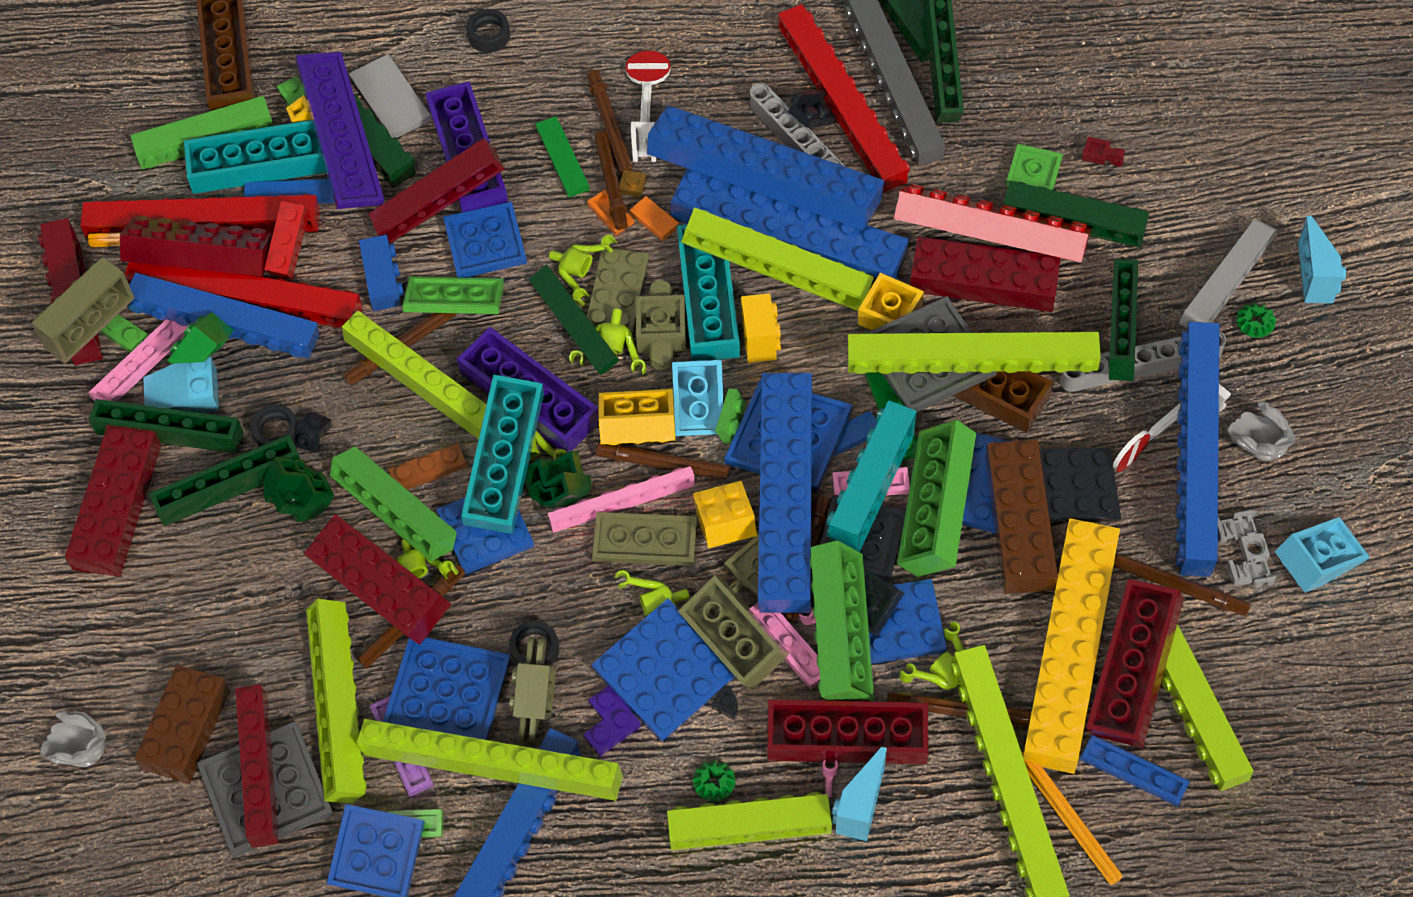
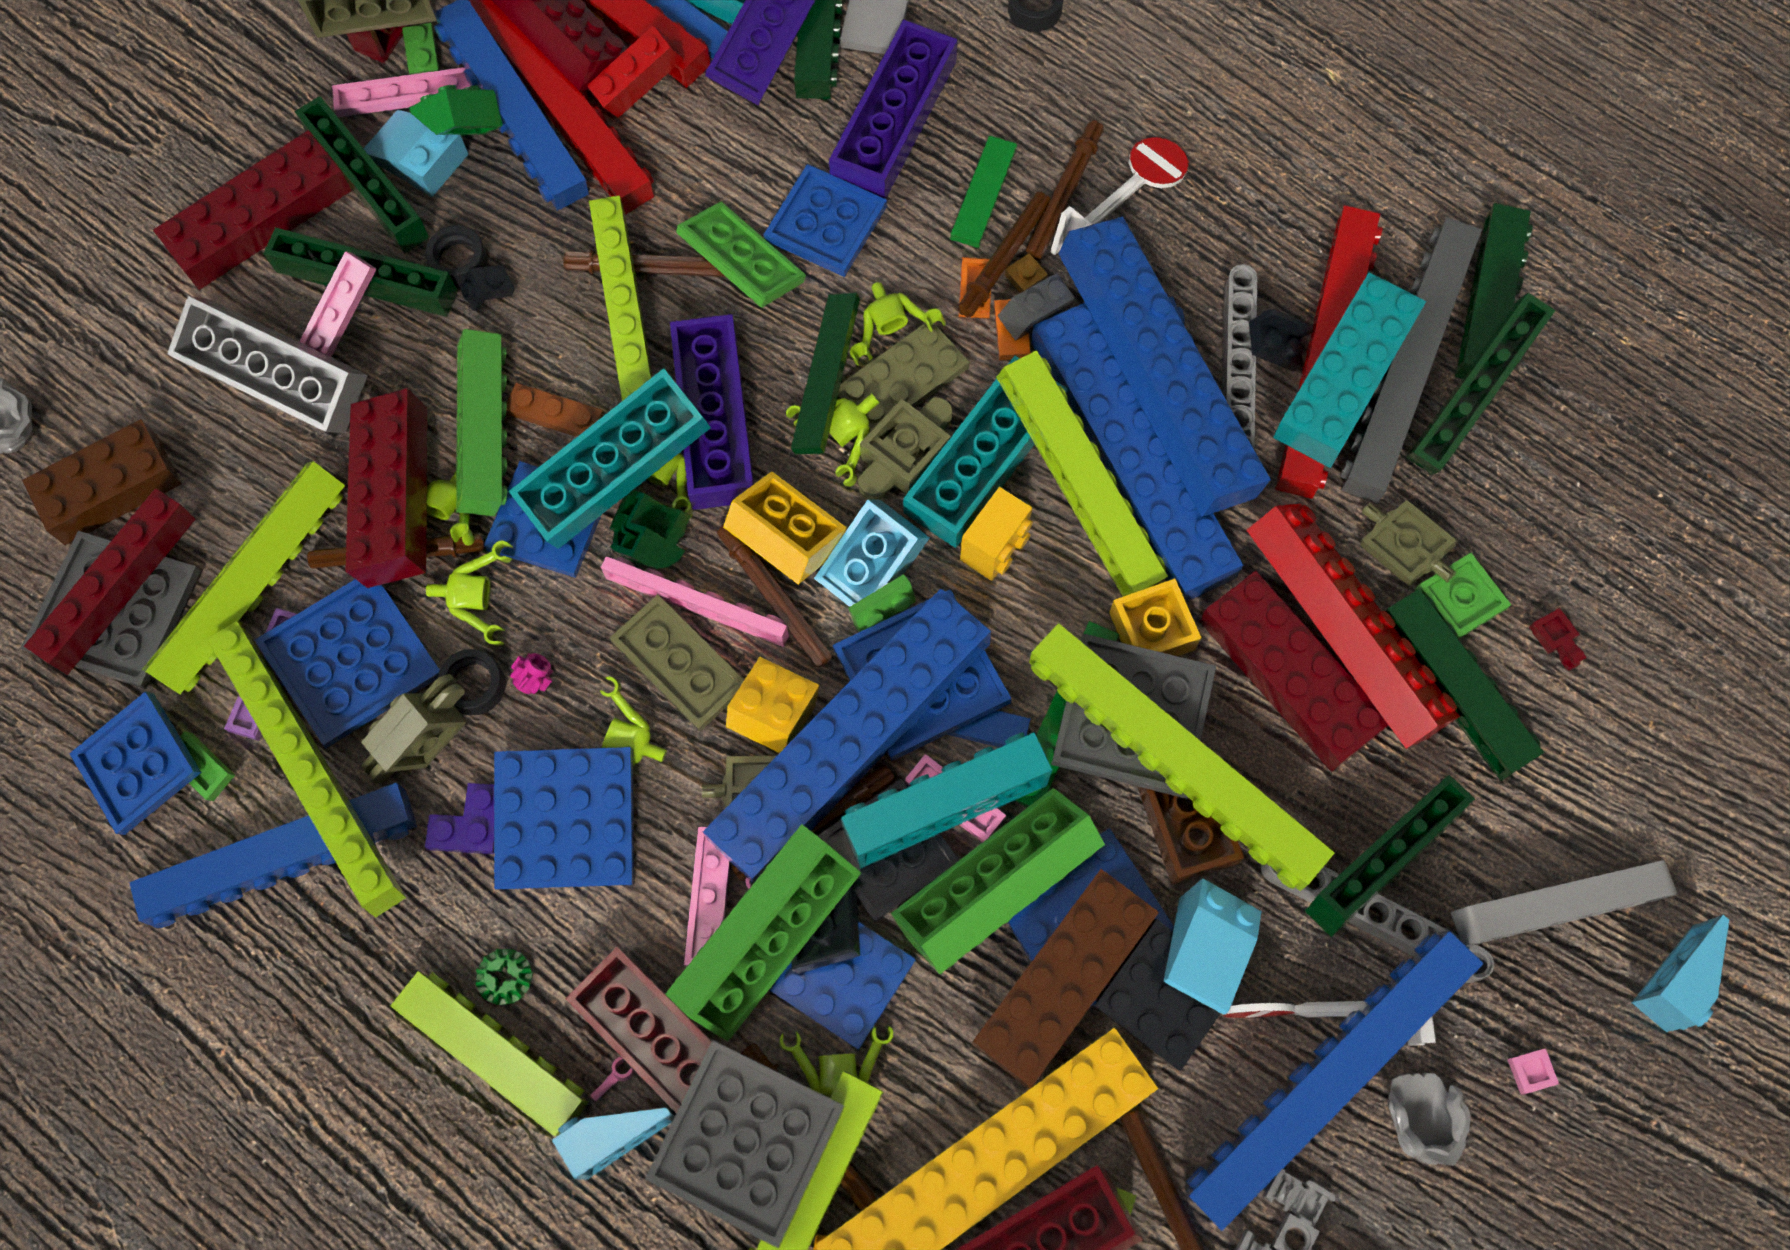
camera: 40 degrees right, 10 degrees up
(223, 574) = (266, 364): none -> light grey brick
(238, 514) = (338, 304): none -> bright pink plate
(296, 489) = (410, 333): dark green brick -> none
(381, 272) = (696, 174): blue brick -> none
(436, 190) = (816, 130): dark red brick -> none
(482, 600) = (470, 591): none -> lime piece
(566, 611) = (531, 673): none -> dark pink gear
(660, 193) = (1035, 305): none -> dark grey brick
(726, 703) = (593, 905): black tile -> none
(733, 632) = (658, 841): olive brick -> none
(868, 95) = (1349, 370): none -> teal brick
(940, 728) = (745, 1143): none -> dark grey plate
(980, 164) = (1408, 543): none -> olive plate
(1077, 435) = (1211, 944): none -> medium azure slope
(1254, 328) = (1542, 987): green gear -> none
(1289, 372) = (1533, 1071): none -> bright pink plate

